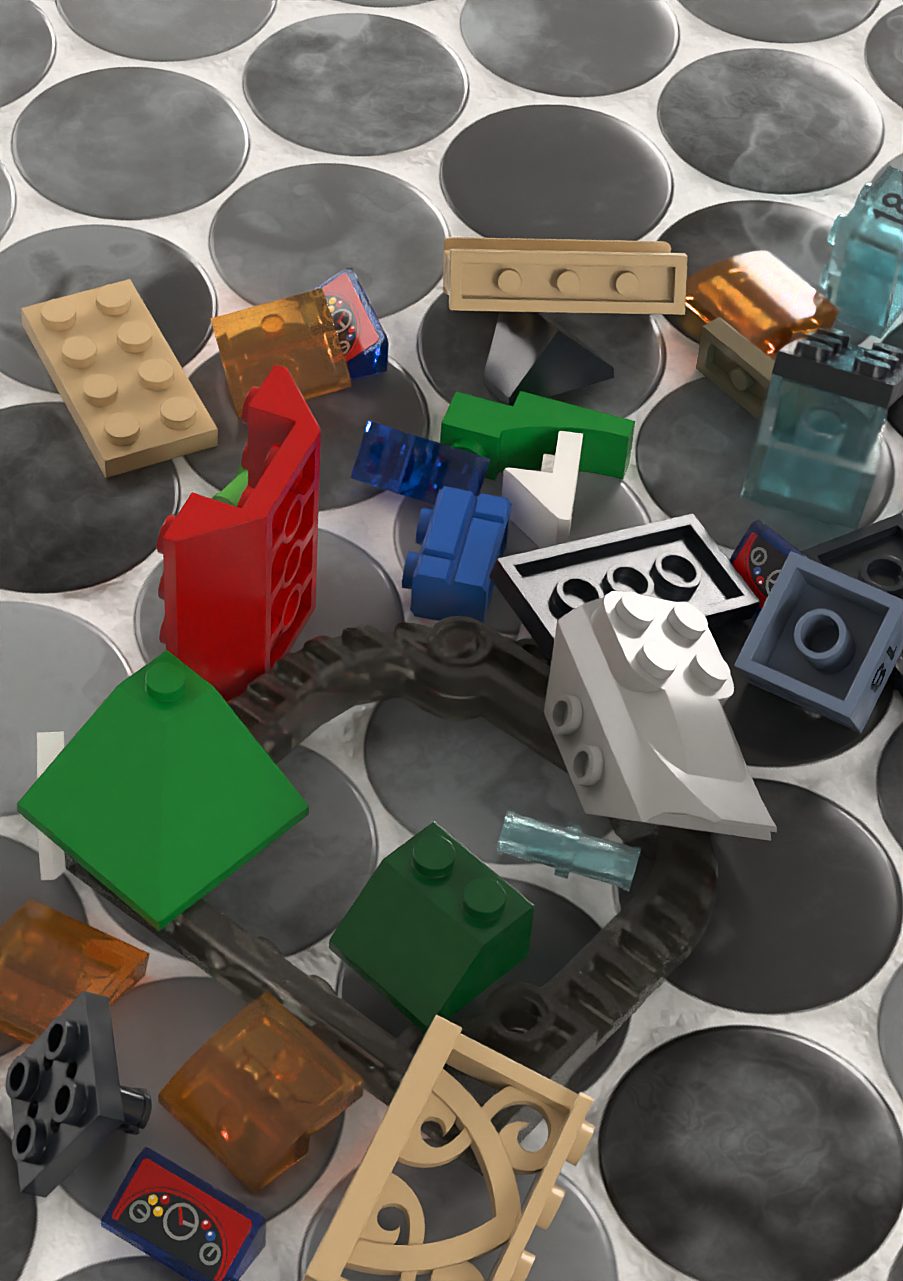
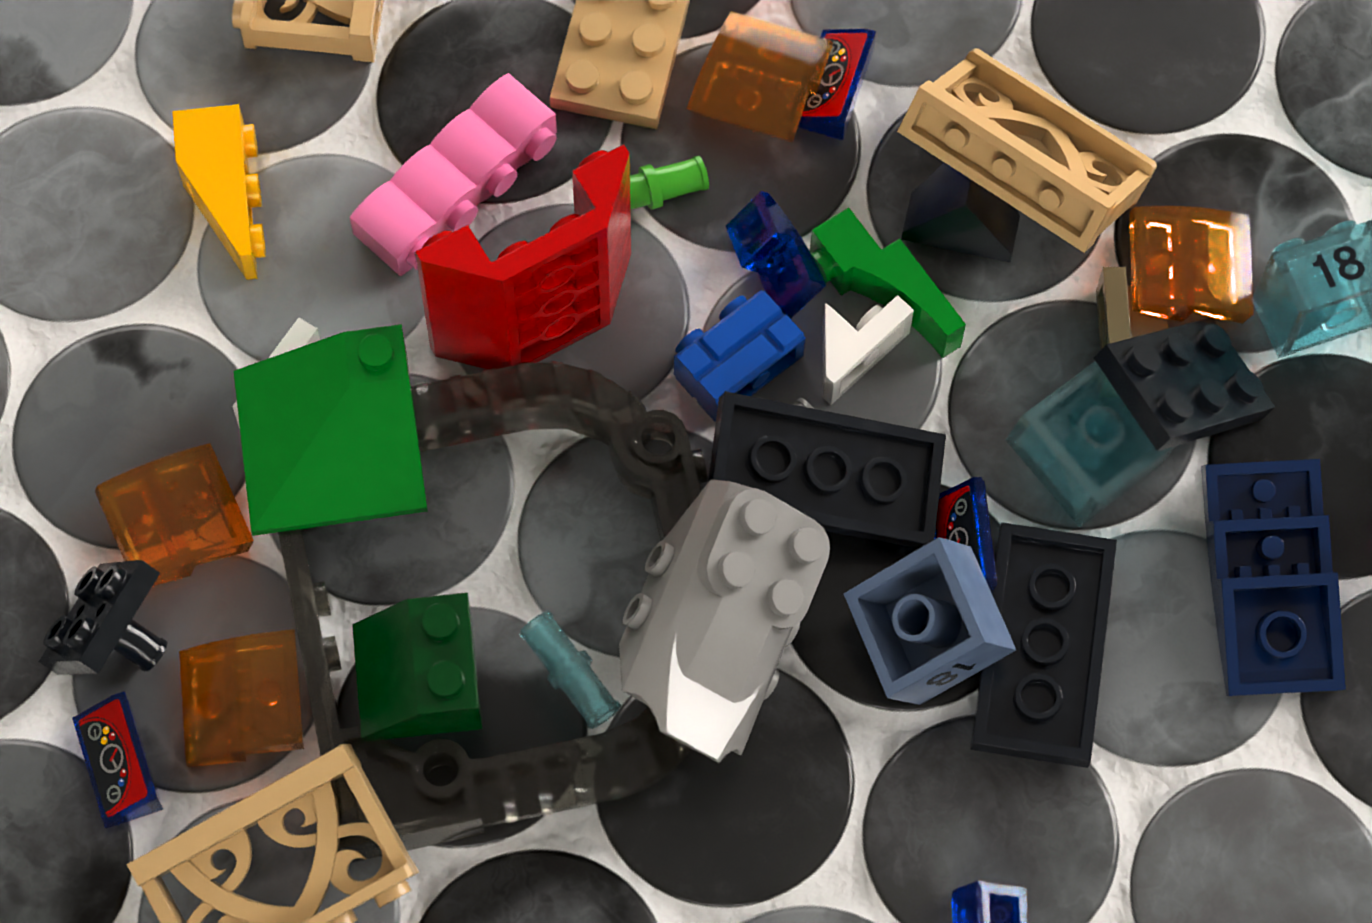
camera: 40 degrees right, 20 degrees up
(73, 562) = (456, 172): none -> bright pink brick

